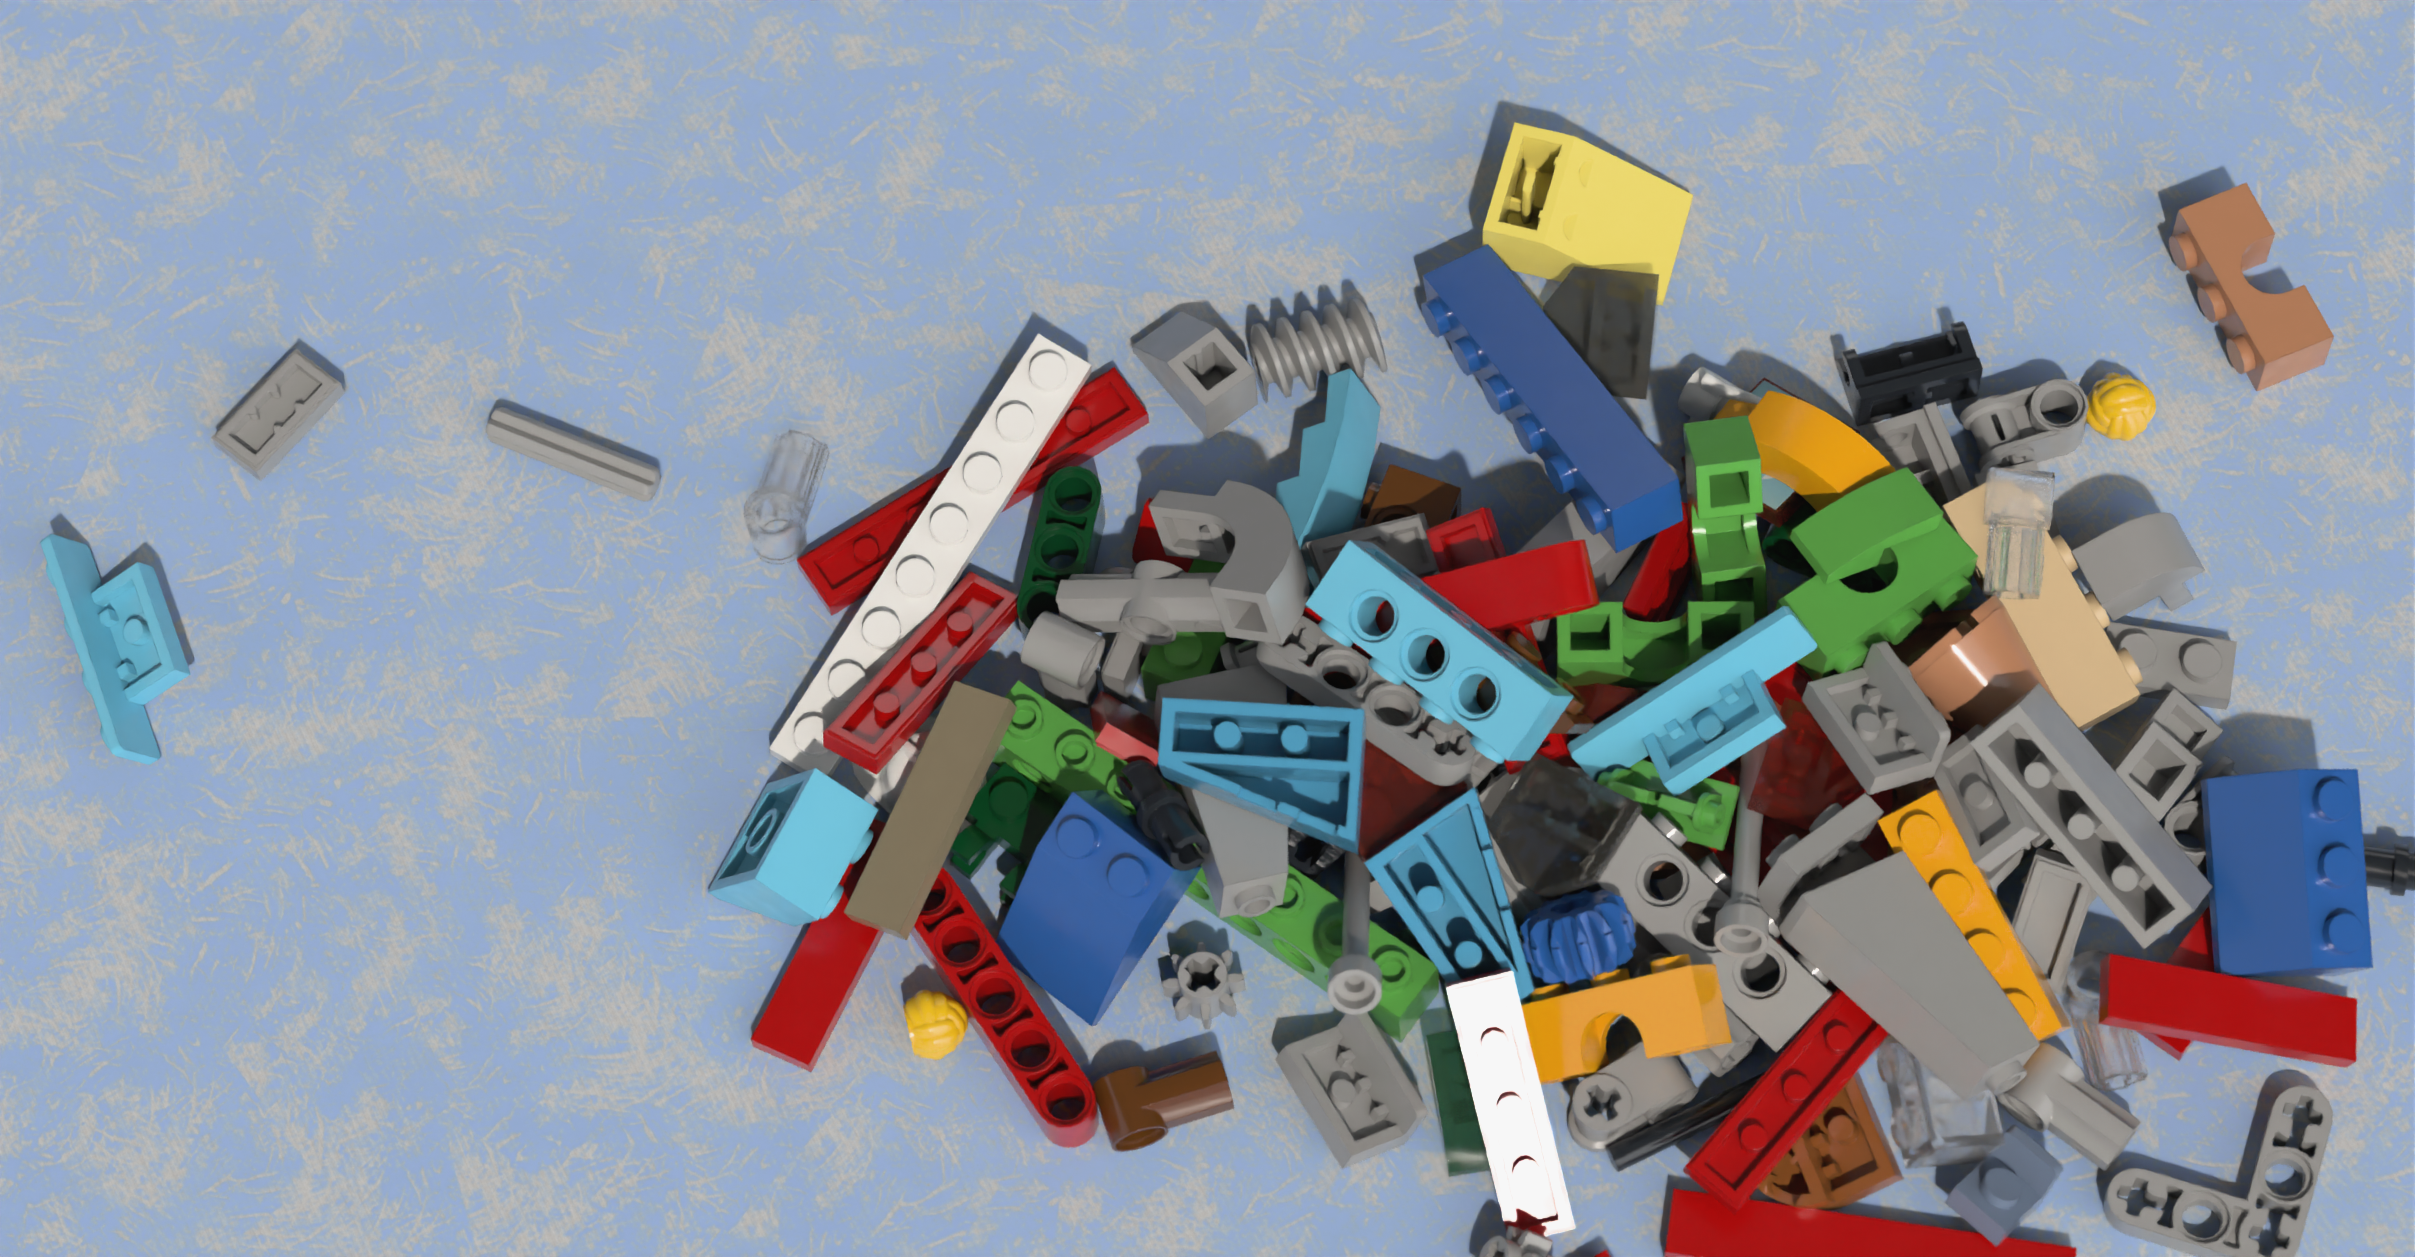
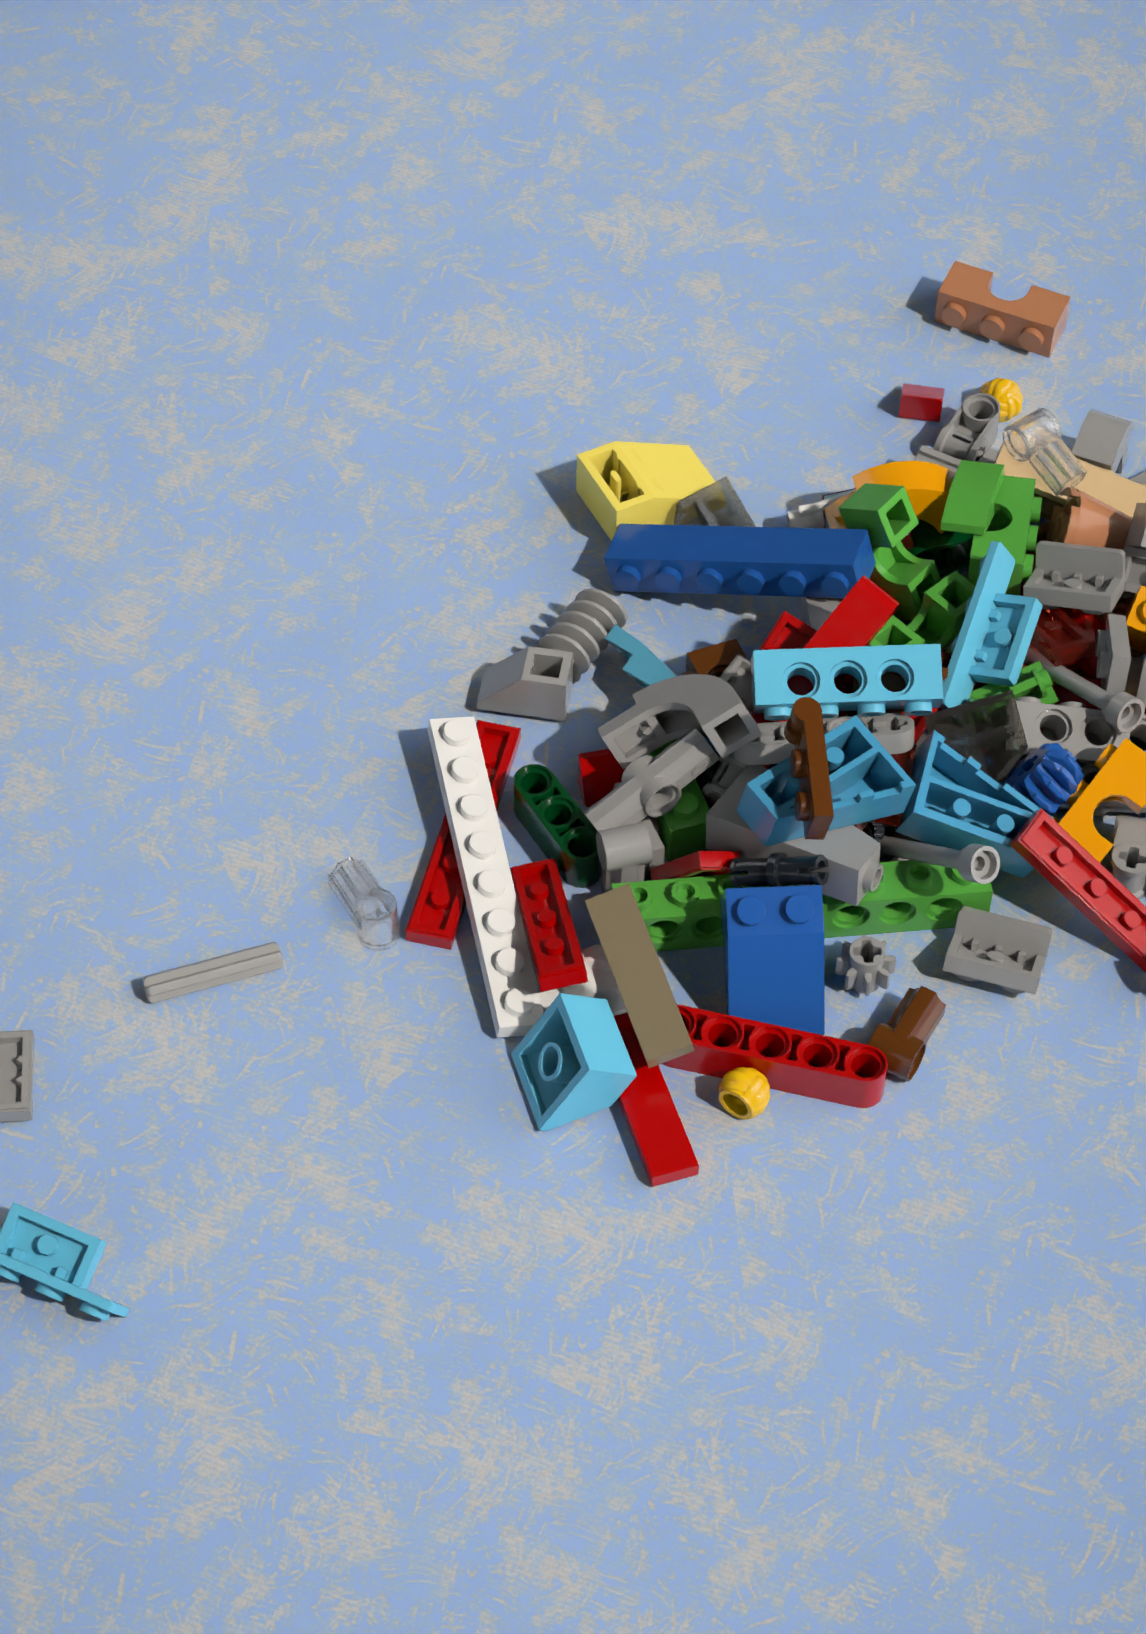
camera: 50 degrees left, 15 degrees down
(1006, 814) = (695, 965): dark green plate -> none
(1231, 735) = (810, 766): none -> reddish brown plate
(1455, 1106) = (1044, 905): clear green slope -> none
(1911, 376) = (890, 442): black hinge -> none
(2028, 336) = (921, 402): none -> red slope

